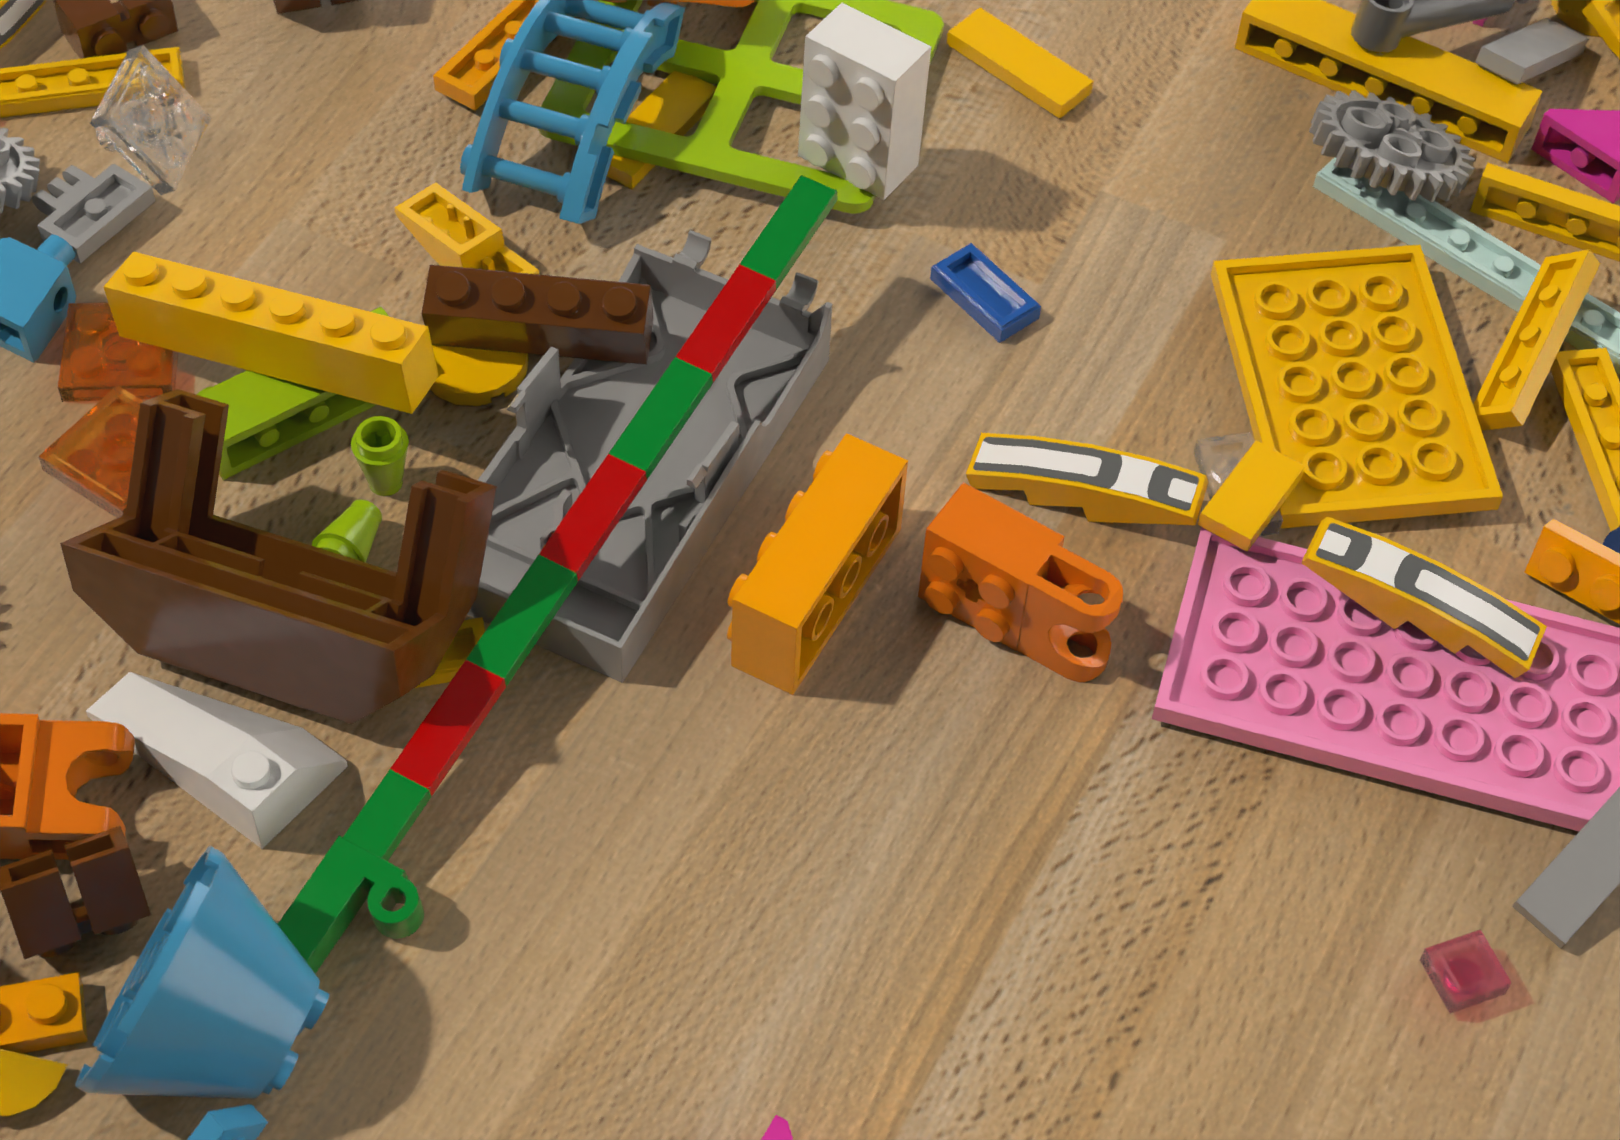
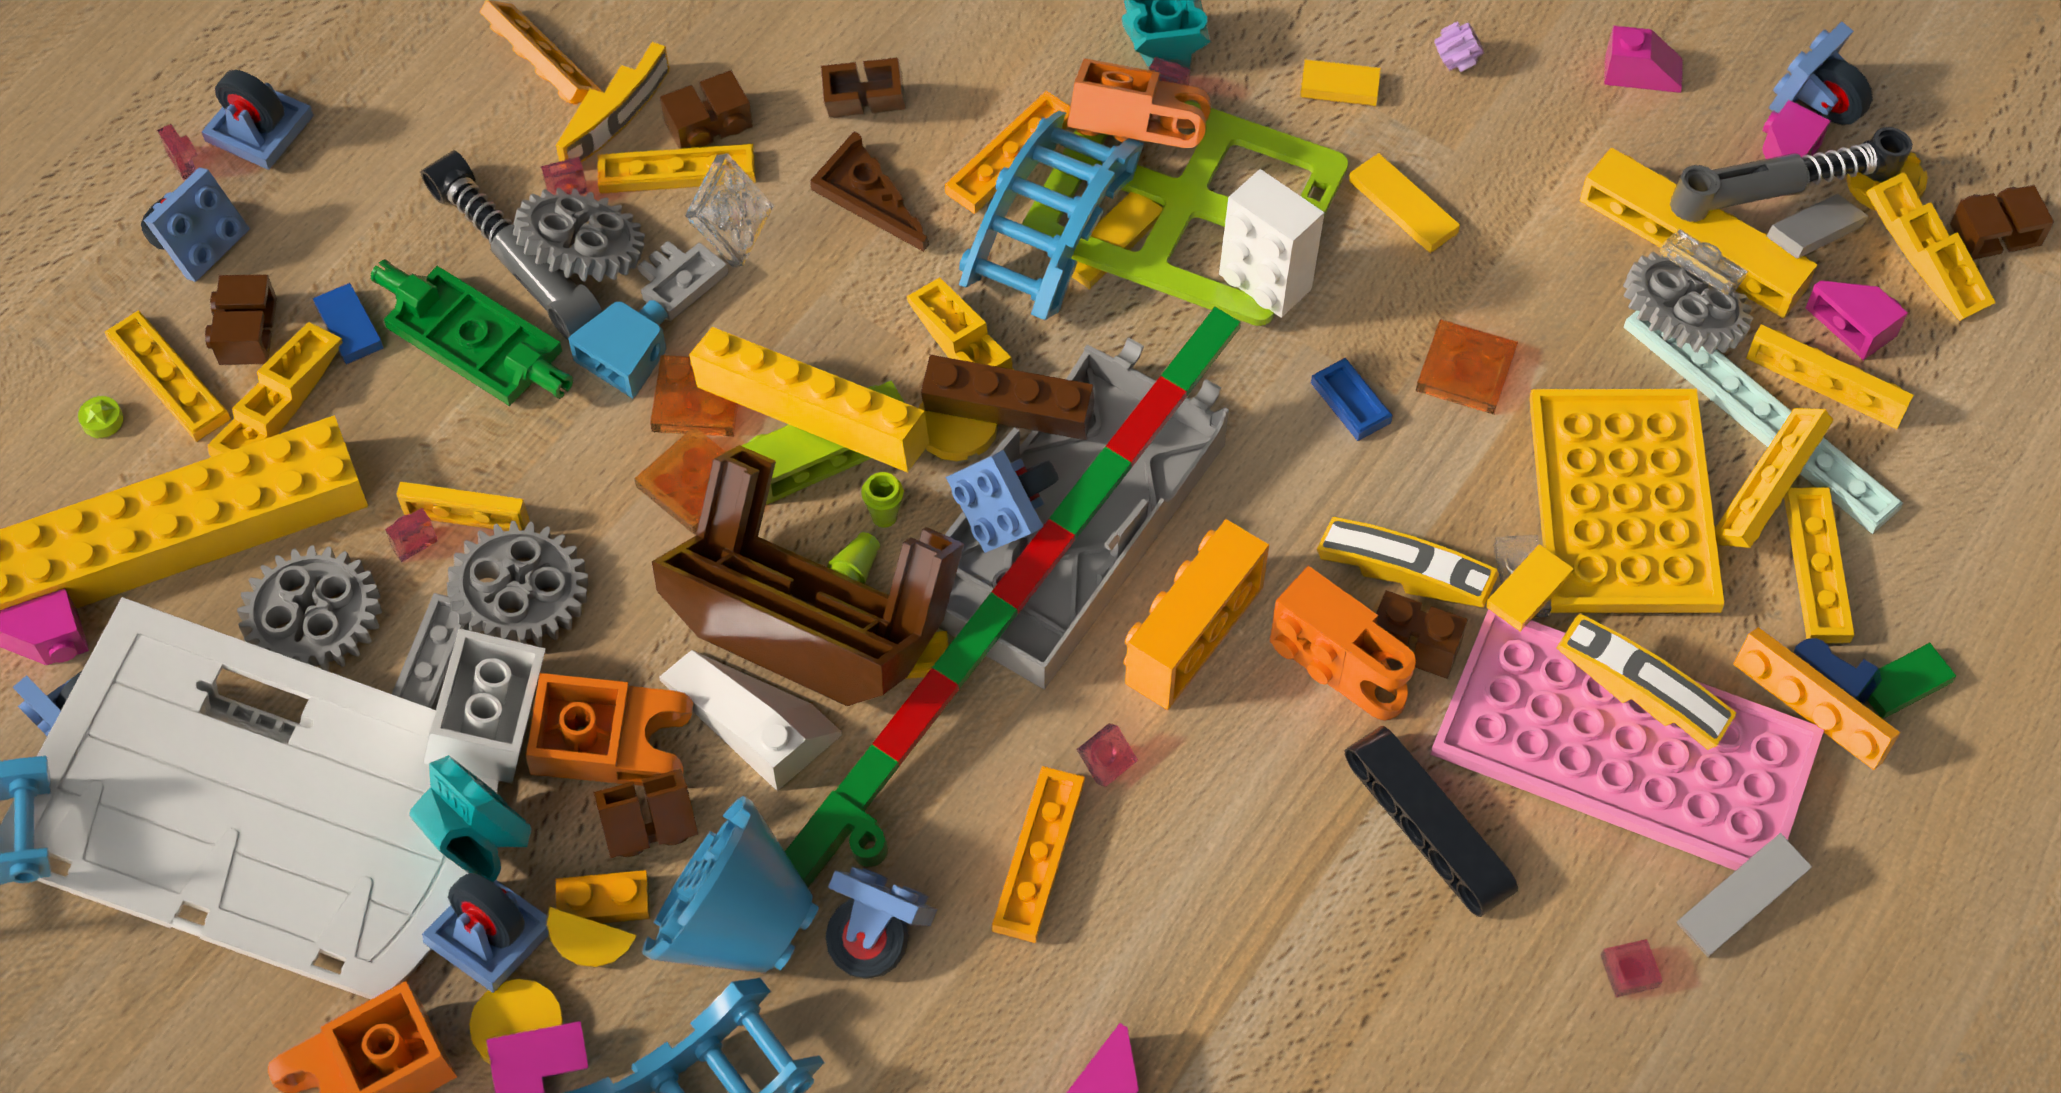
camera: 10 degrees right, 5 degrees up
(325, 88) = (858, 185): none -> reddish brown wing
(406, 1023) = (870, 929): none -> plate
(540, 432) = (1001, 497): none -> medium blue plate
(635, 899) = (1038, 854): none -> light orange plate
(717, 756) = (1107, 754): none -> clear pink plate
(1126, 244) = (1466, 366): none -> clear orange plate
(1141, 557) = (1437, 631): none -> reddish brown piece
(1167, 804) = (1431, 821): none -> black beam
(1404, 95) = (1703, 261): none -> clear plate

